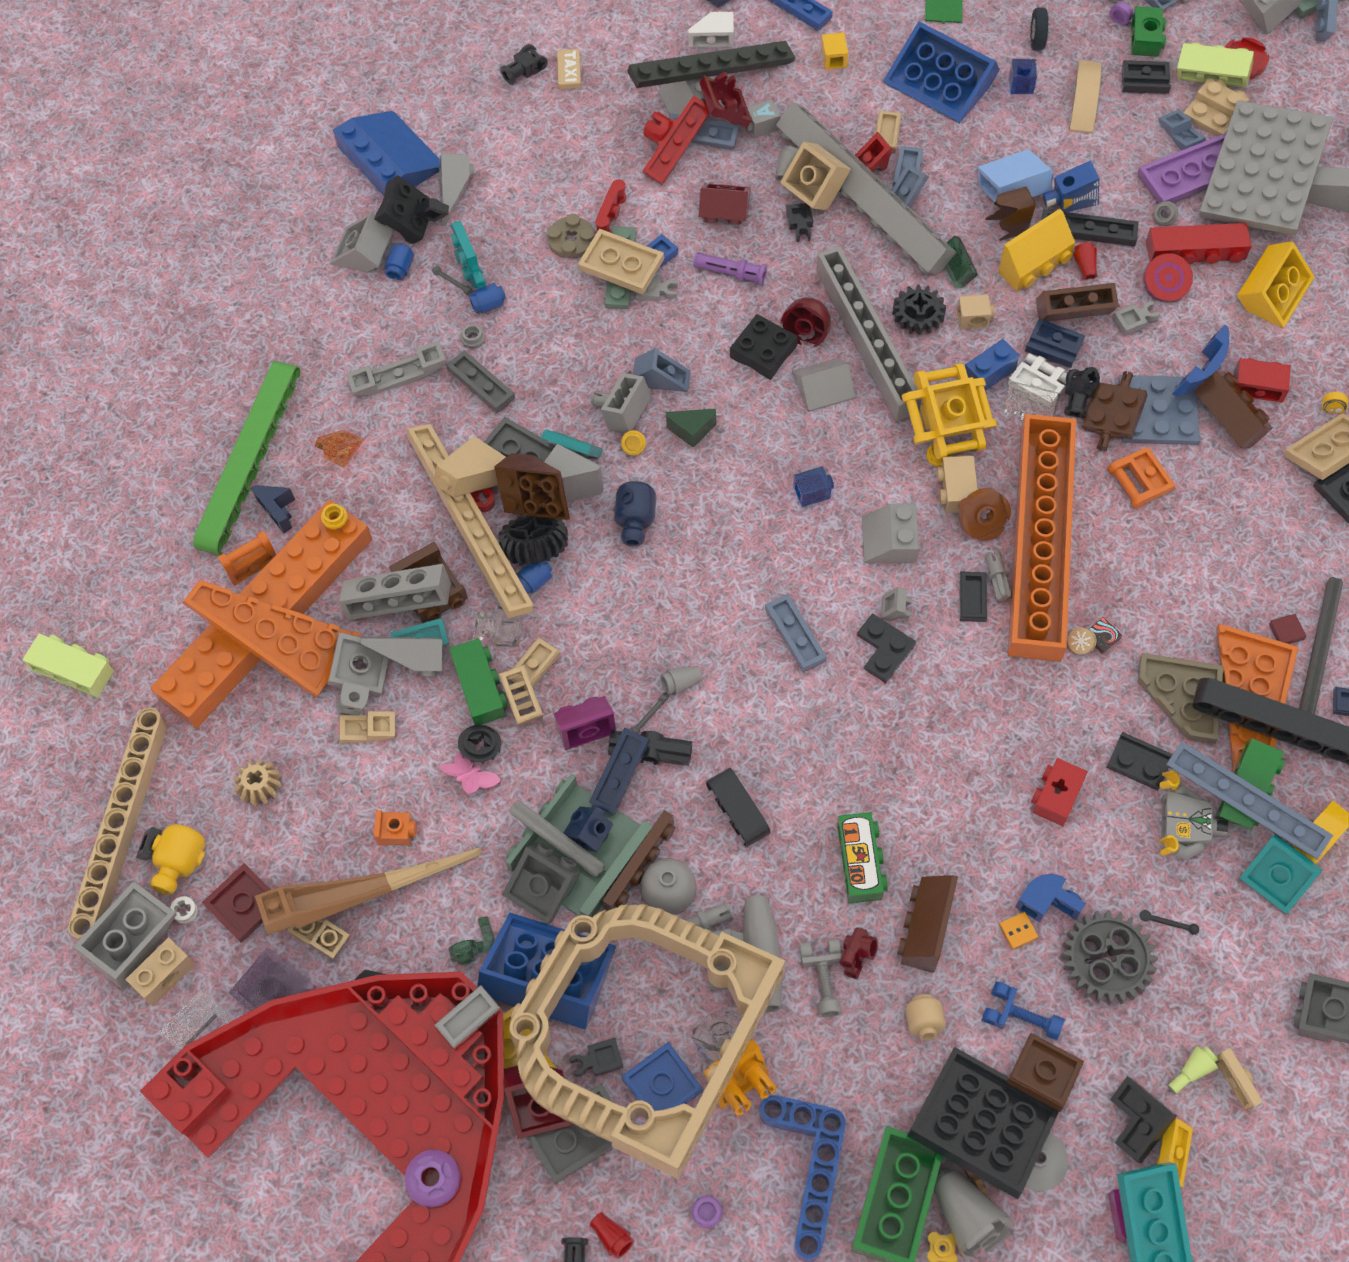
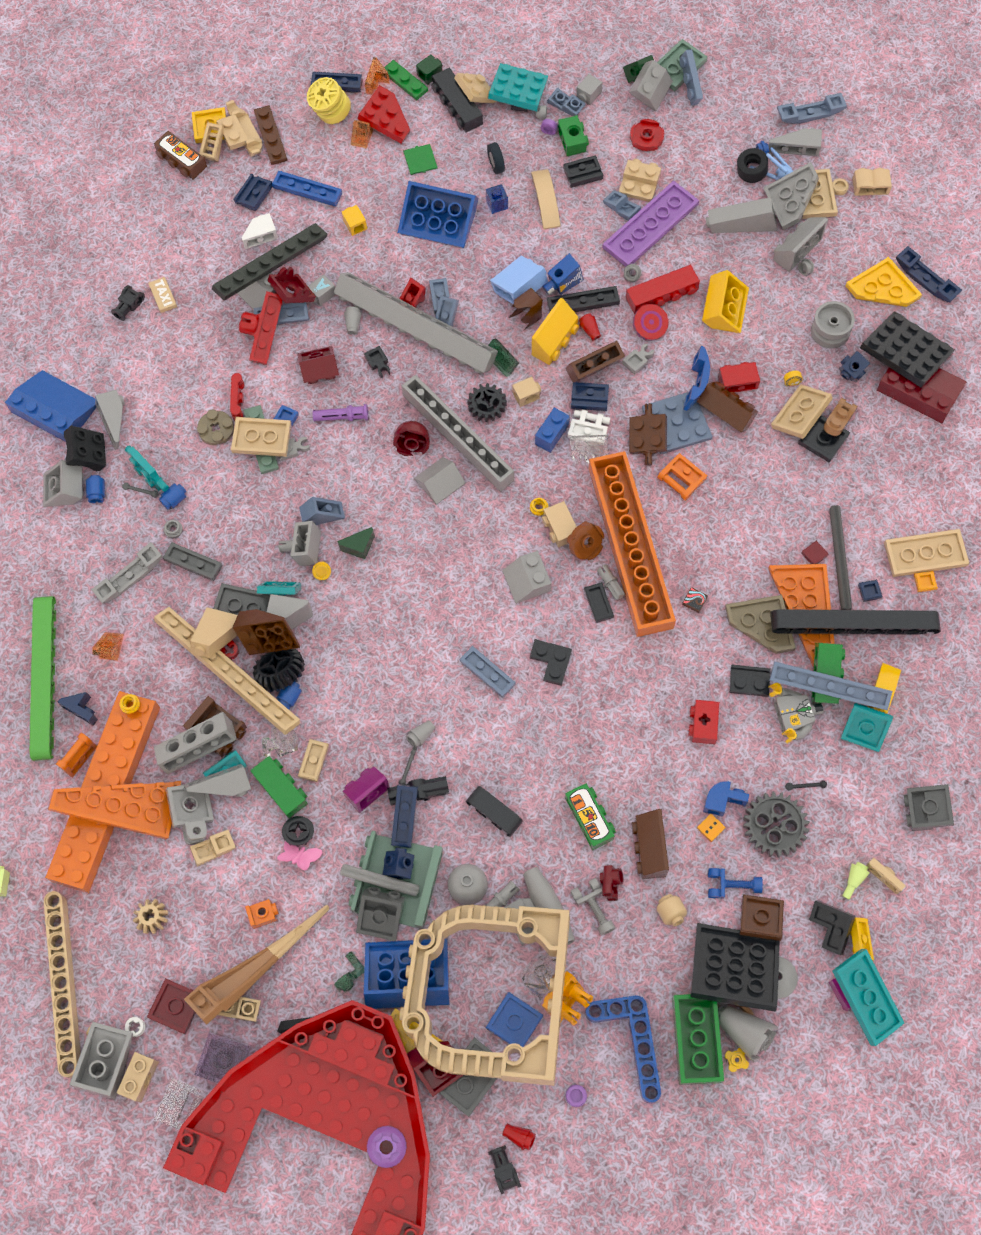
camera: 20 degrees left, 5 degrees up
(145, 850) = (91, 989): black plate -> none
(176, 856) = (114, 990): yellow piece -> none
(432, 209) = (106, 442): black plate -> none
(467, 1017) = (369, 1030): light grey tile -> none
(513, 673) = (324, 799): tan slope -> none
(602, 1057) = (467, 1019): black plate -> none
(634, 510) = (342, 622): dark blue piece -> none
(647, 852) = (440, 883): reddish brown plate -> none
(763, 346) = (387, 466): black brick -> none
(813, 486) = (460, 560): clear blue brick -> none
(815, 176) = (377, 325): tan brick -> none
(888, 126) = (414, 268): tan tile -> none
(895, 604) = (548, 627): light grey tile -> none
(949, 410) = (536, 473): yellow brick -> none
(1080, 389) = (619, 426): black connector -> none
(1082, 640) = (683, 609): tan tile -> none
(1204, 62) = (629, 147): yellowish green brick -> none
(1266, 167) = (690, 217): light grey plate -> none

